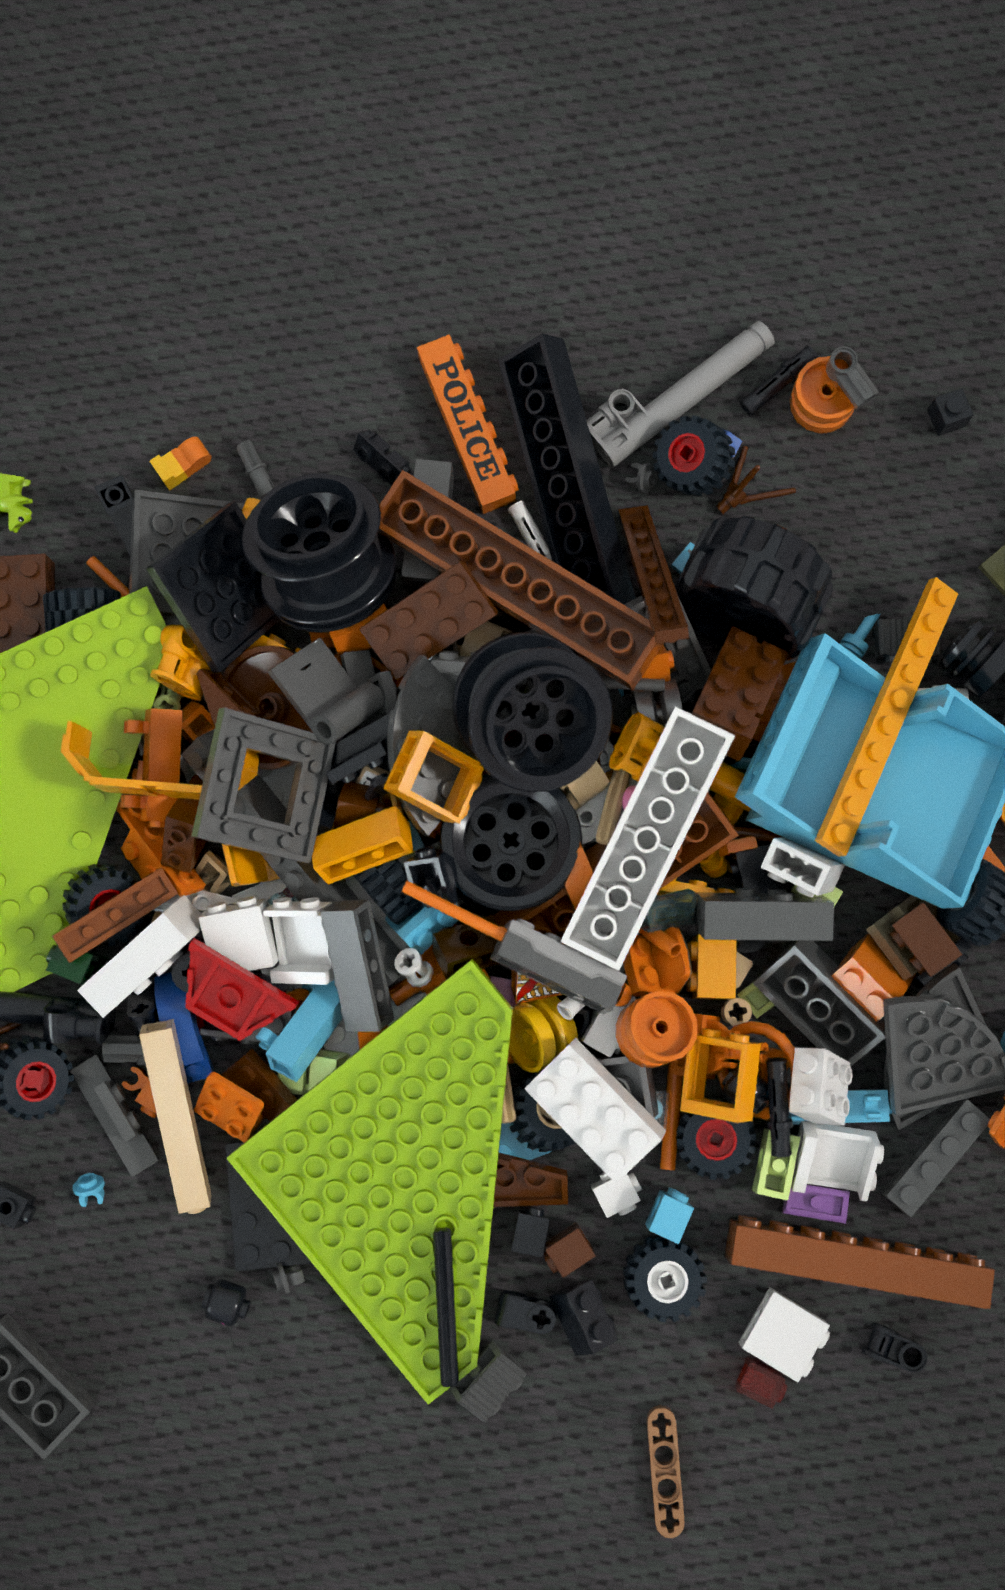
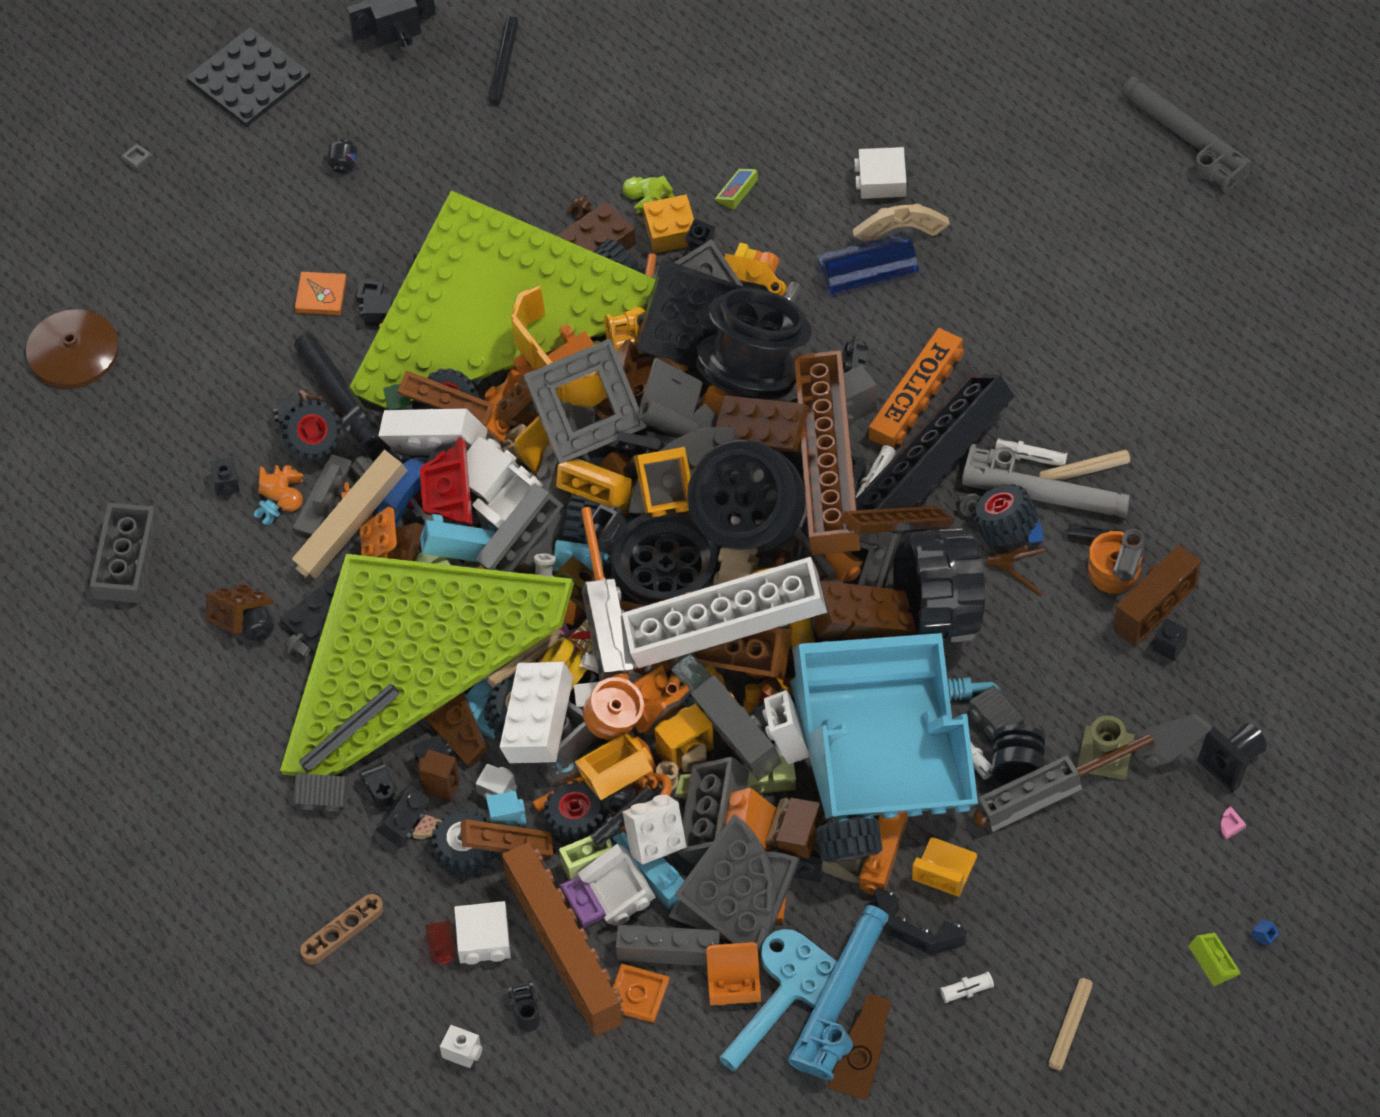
camera: 50 degrees right, 25 degrees down
(62, 511) = (668, 223): none -> light orange brick
(67, 1160) = (276, 487): none -> orange animal
(68, 410) = (737, 188): none -> lime slope
(175, 255) = (881, 172): none -> white brick
(186, 1310) = (226, 606): none -> reddish brown bracket
(199, 474) = (755, 272): none -> light orange plate
(244, 295) = (900, 216): none -> tan plate
(273, 352) = (868, 263): none -> clear blue brick
(612, 1293) = (425, 827): none -> tan tile
(628, 373) = (1034, 453): none -> white pin
(683, 336) = (1086, 466): none -> tan axle
(704, 1240) = (503, 837): none -> dark orange plate
(886, 718) = (926, 709): light orange plate -> none
(901, 1451) = (461, 1046): none -> white brick
(902, 390) = (1157, 595): none -> reddish brown brick
(957, 1220) = (640, 991): none -> orange tile

